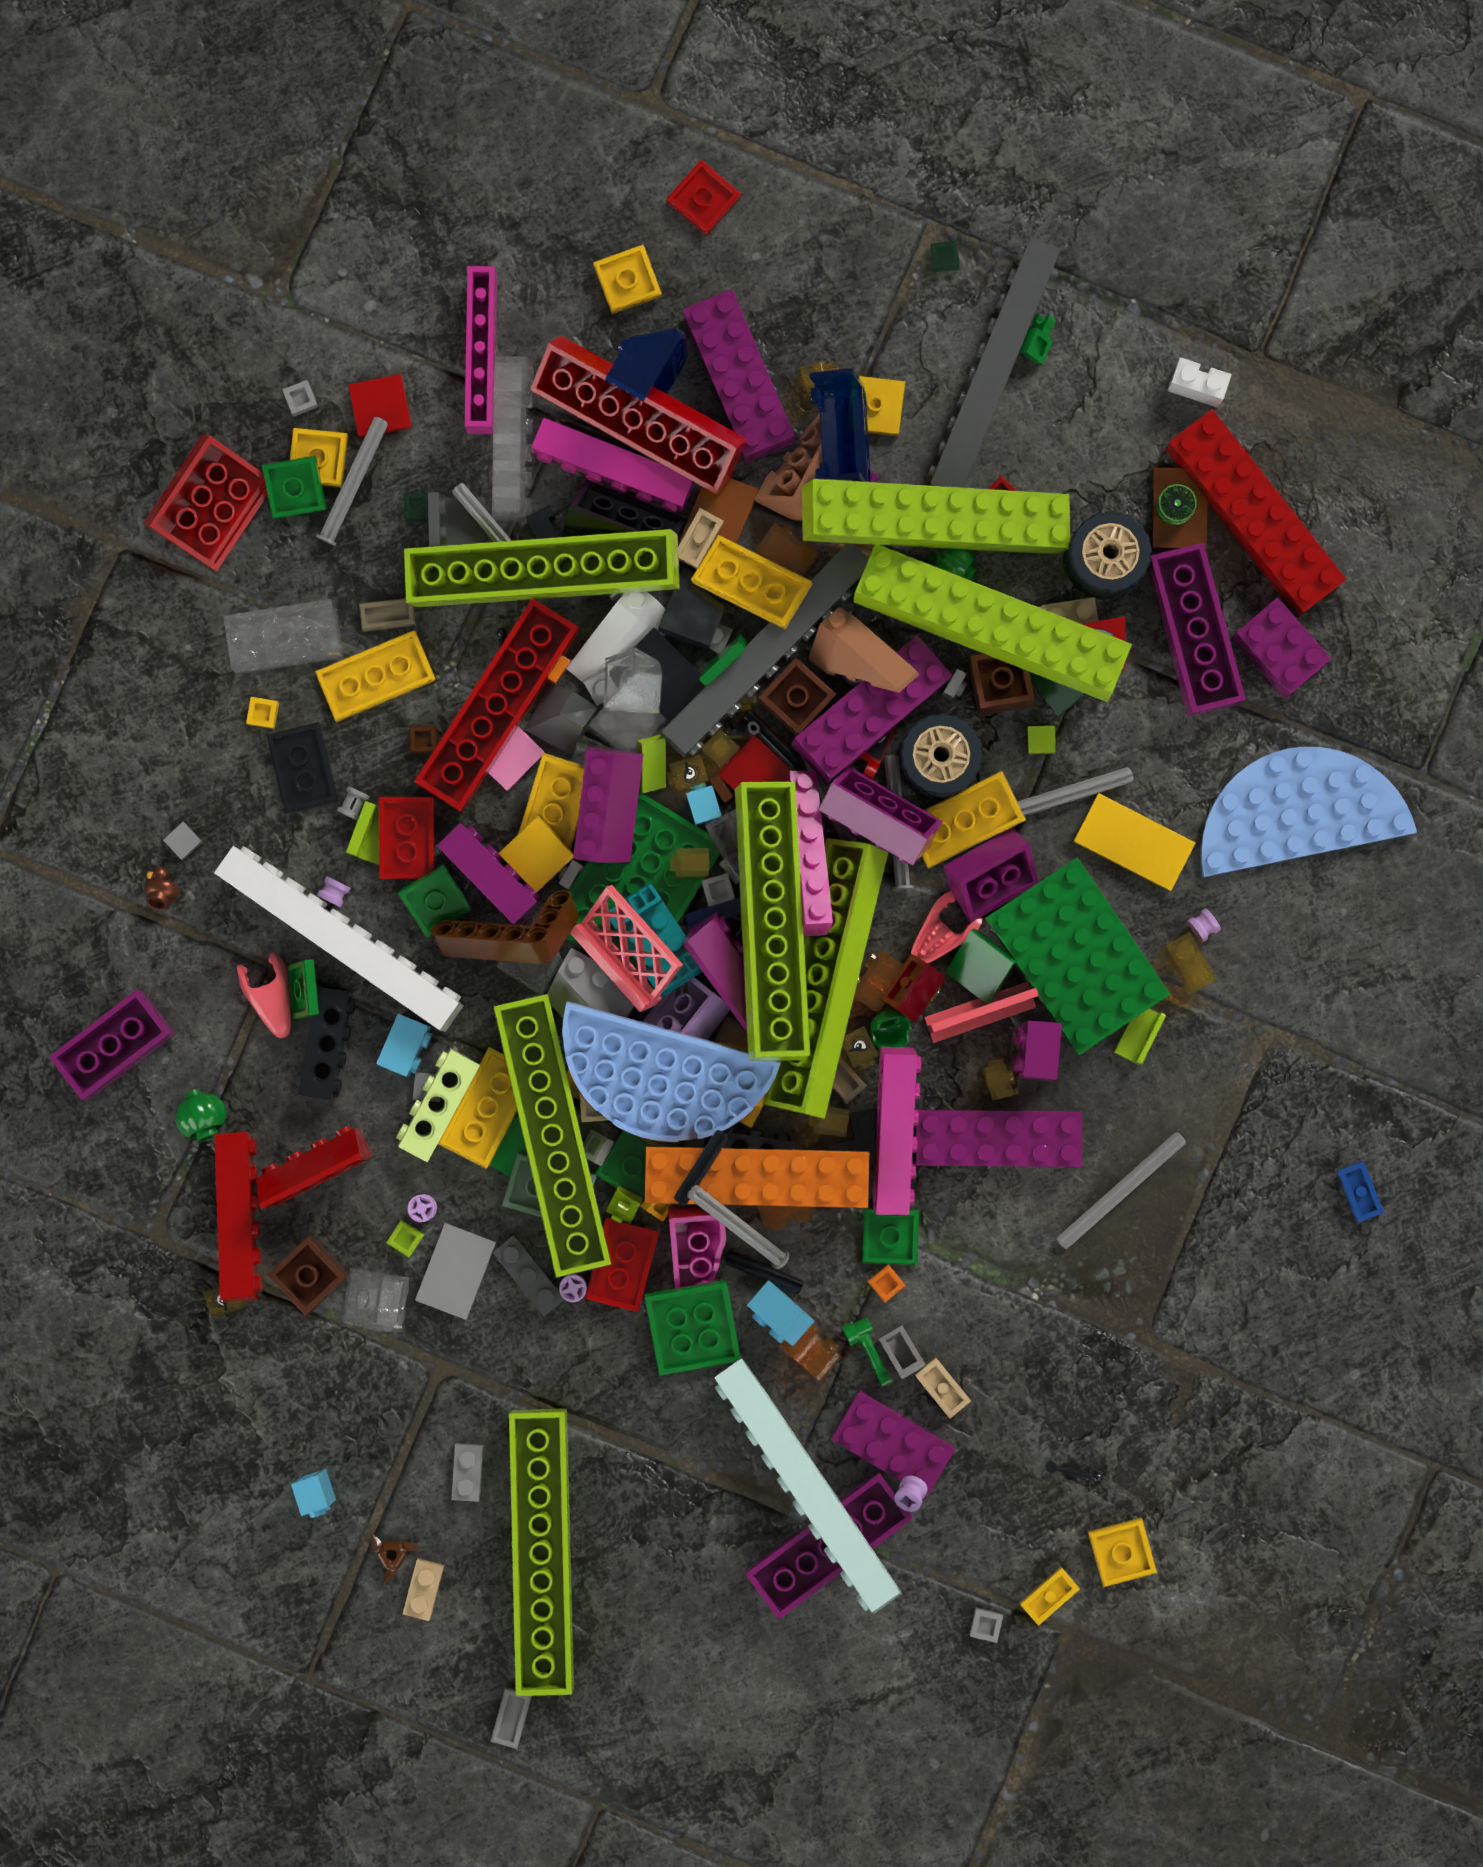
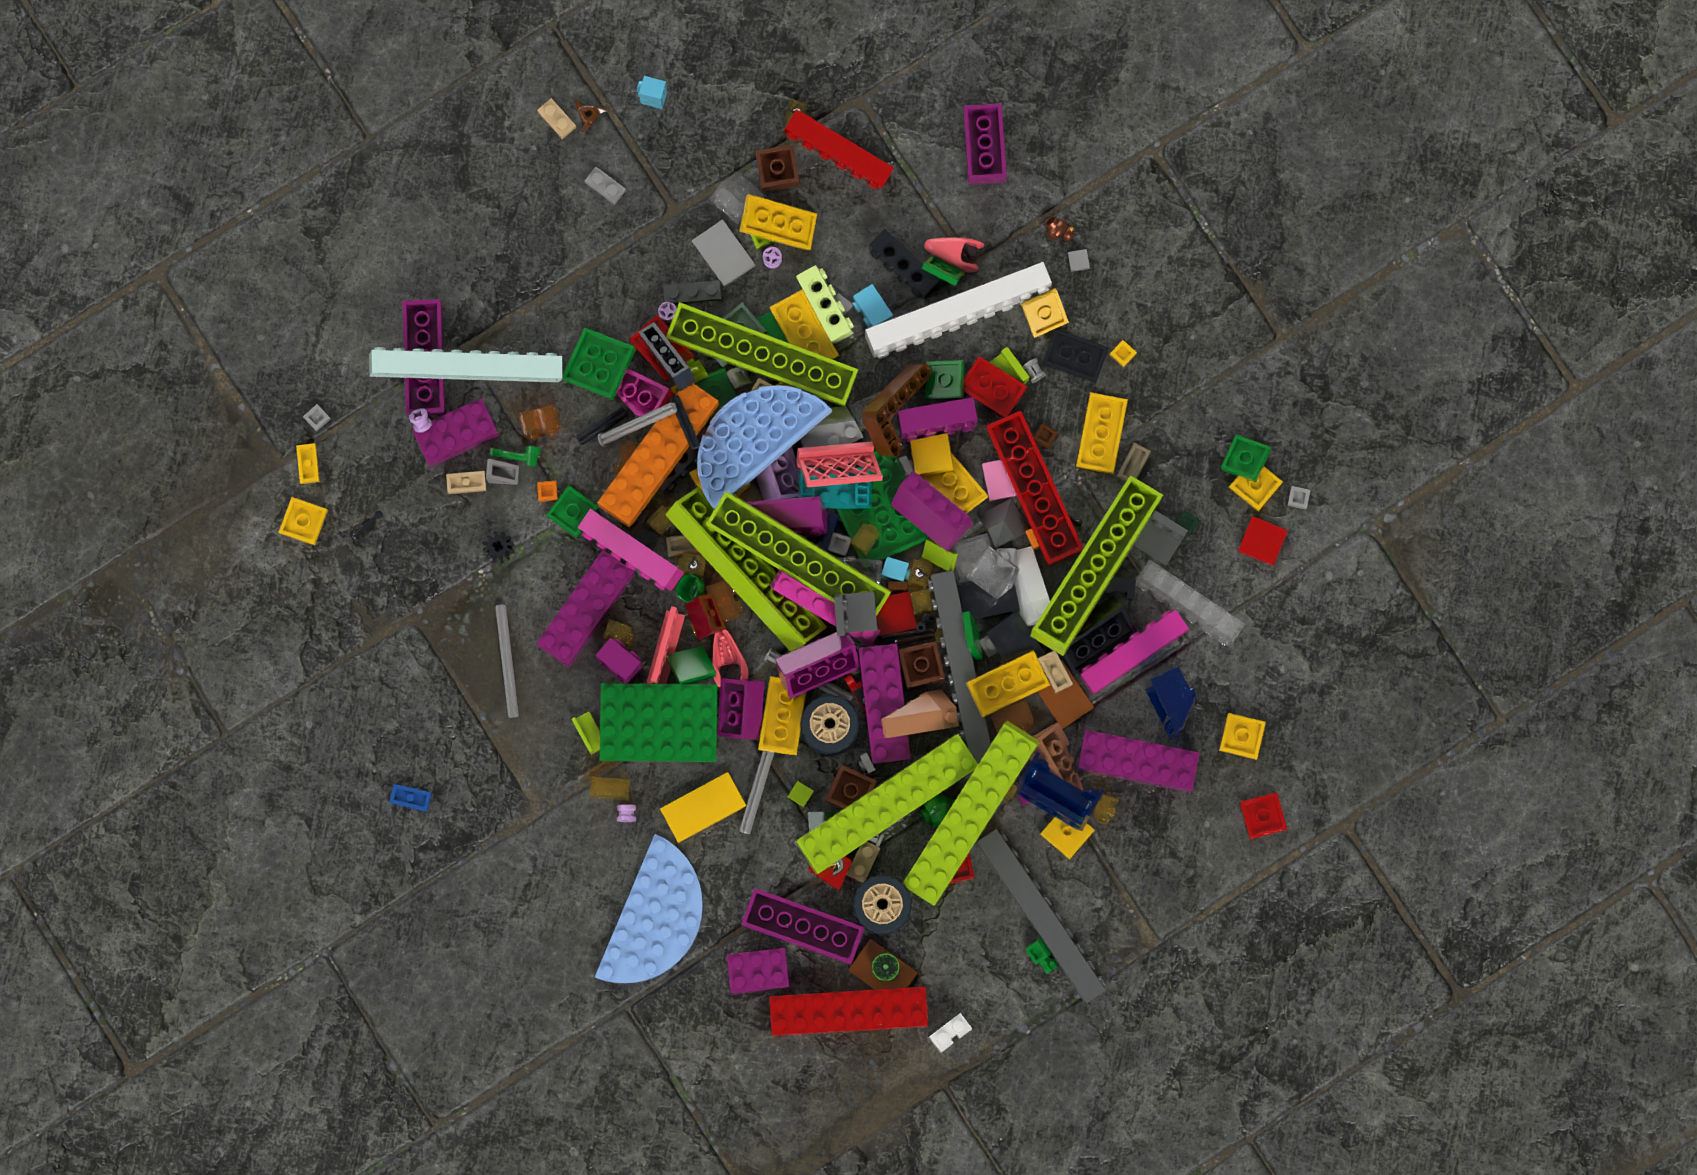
camera: 120 degrees right, 5 degrees down
(200, 1115) = (911, 167): green plant -> none
(208, 502) = (1270, 402): red slope -> none
(274, 836) = (1044, 312): none -> yellow plate
(283, 636) = (1159, 393): clear brick -> none
(312, 1167) = (836, 209): red slope -> none
(333, 891) = (989, 325): lavender wheel -> none
(353, 481) = (1226, 494): light grey axle -> none
(375, 1228) = (778, 222): none -> yellow tile
(479, 513) = (1154, 554): light grey axle -> none
(480, 348) = (1256, 620): dark pink brick -> none
(510, 1718) = (451, 121): light grey tile -> none
(541, 1552) = (532, 196): lime brick -> none
(633, 1245) = (667, 356): none -> black brick
(655, 427) = (1133, 691): red brick -> none
(779, 1313) = (572, 416): medium azure brick -> none
(794, 806) = (855, 612): none -> dark grey bracket
(944, 256) = (1130, 935): clear green tile -> none
(1002, 1298) = (490, 549): none -> black gear

